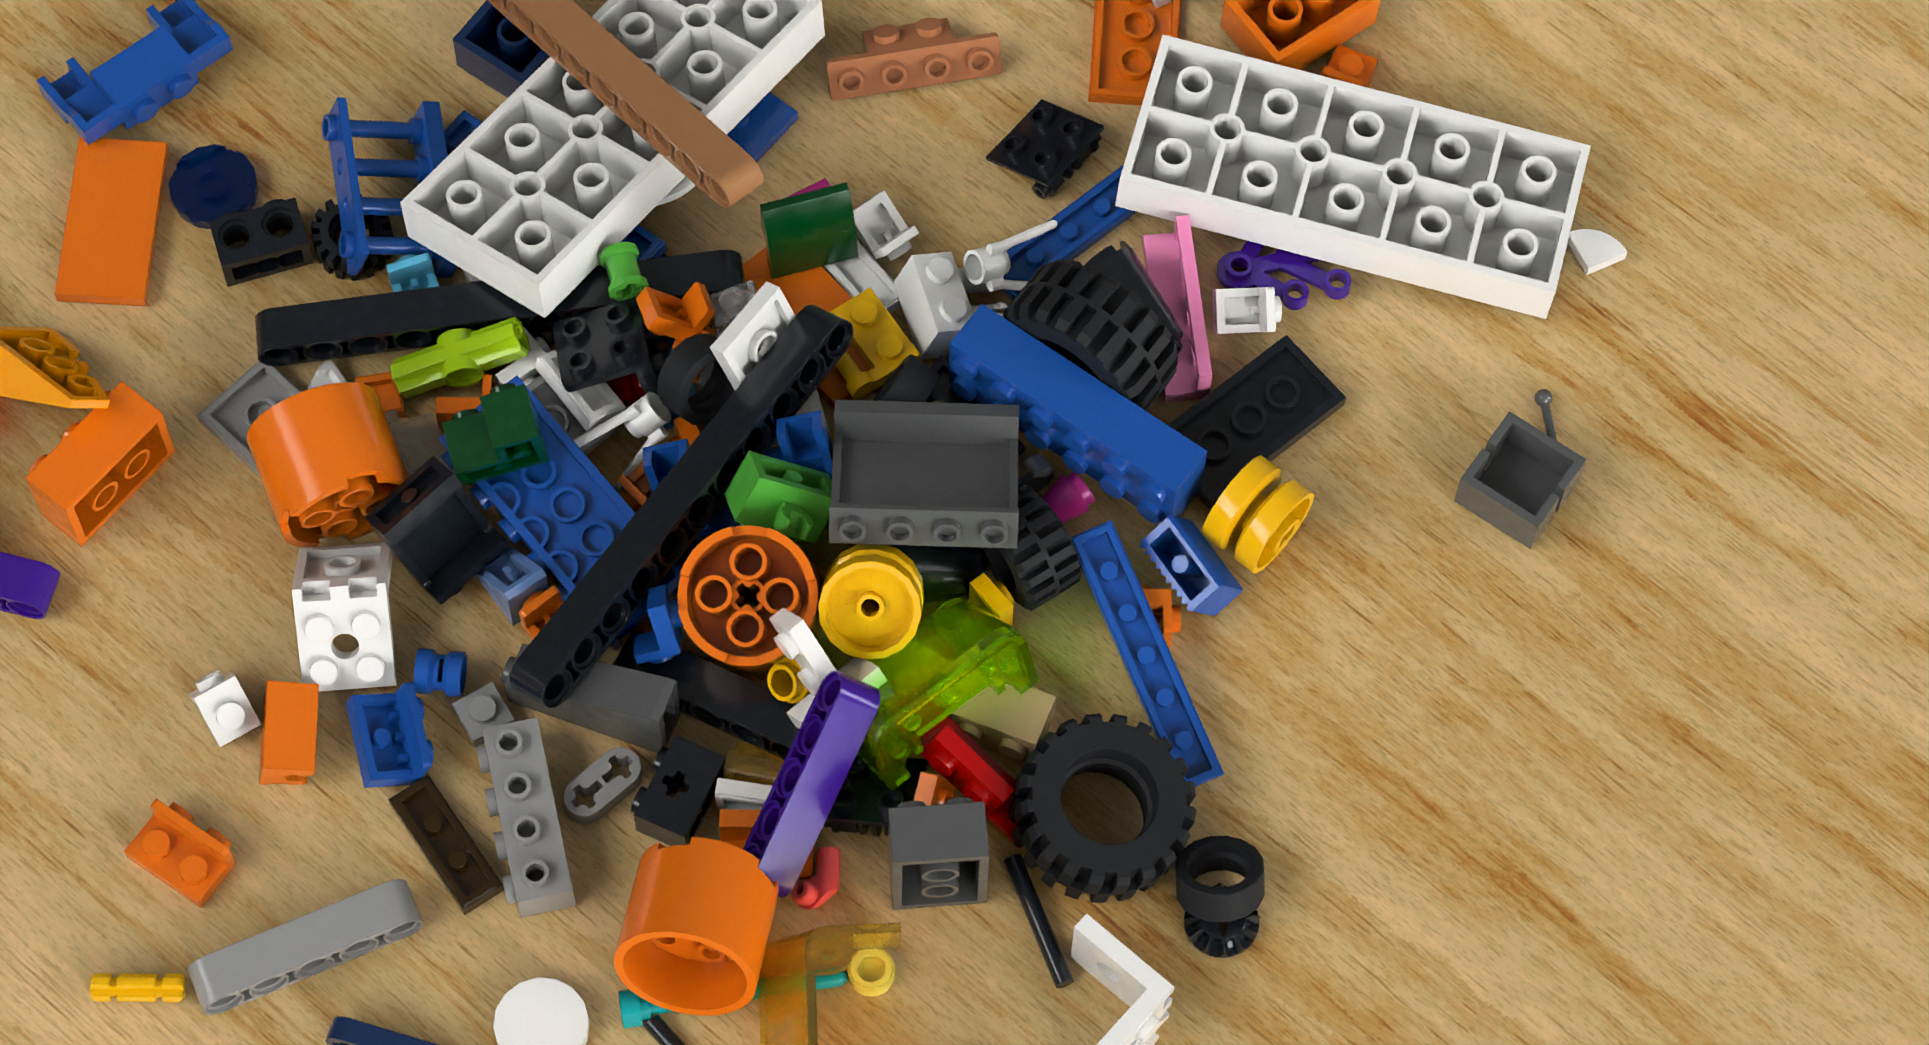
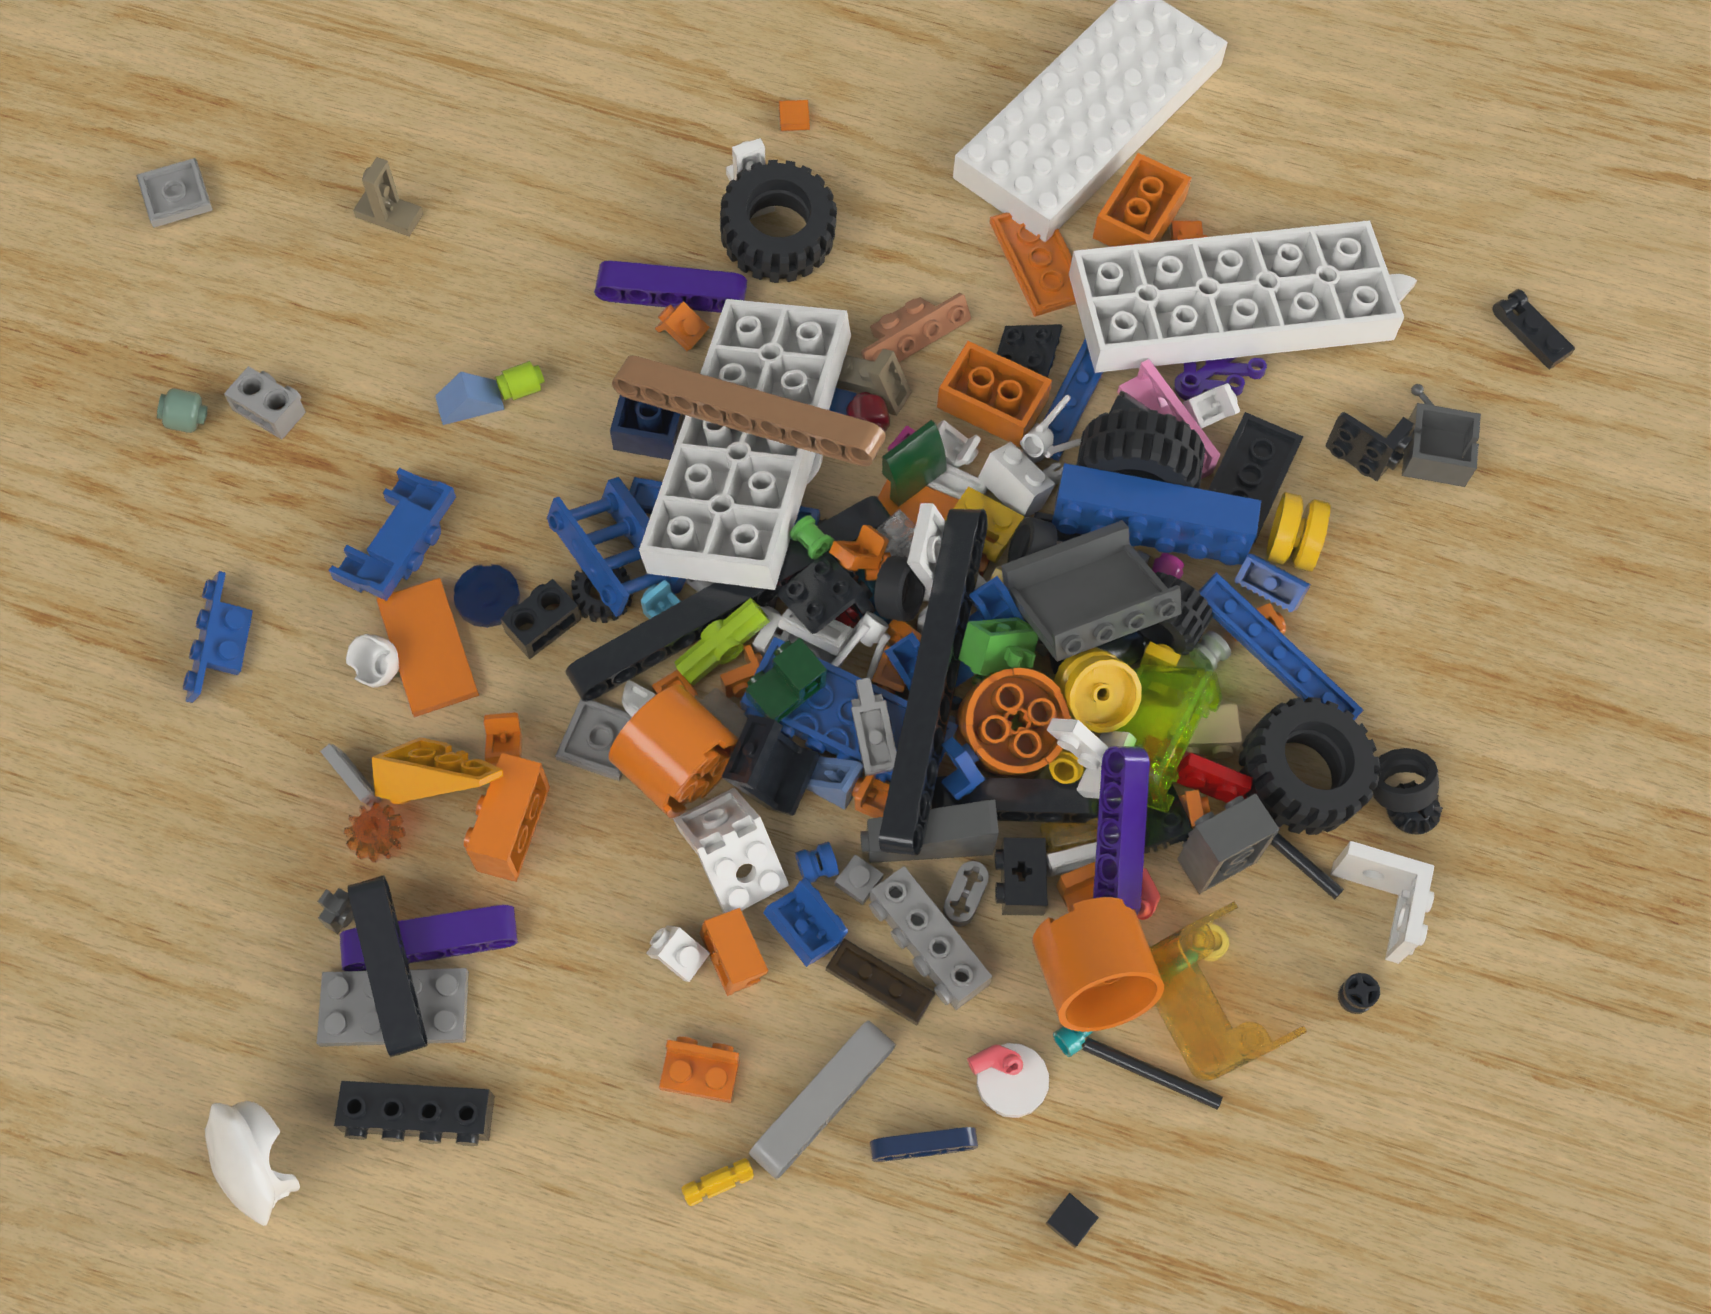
camera: 25 degrees left, 0 degrees up
(38, 210) = (373, 660): none -> white hair
(147, 367) = (502, 736): none -> orange bracket
(531, 988) = (997, 1058): none -> coral arm
(577, 534) = (873, 730): none -> light grey hinge
(792, 148) = (869, 408): none -> dark red head
(829, 104) = (879, 377): none -> dark tan bracket
(967, 180) = (993, 393): none -> orange brick
(1066, 620) = (1210, 651): none -> light grey wheel
(1423, 460) = (1366, 448): none -> black bracket
(1751, 381) = (1533, 329): none -> black plate

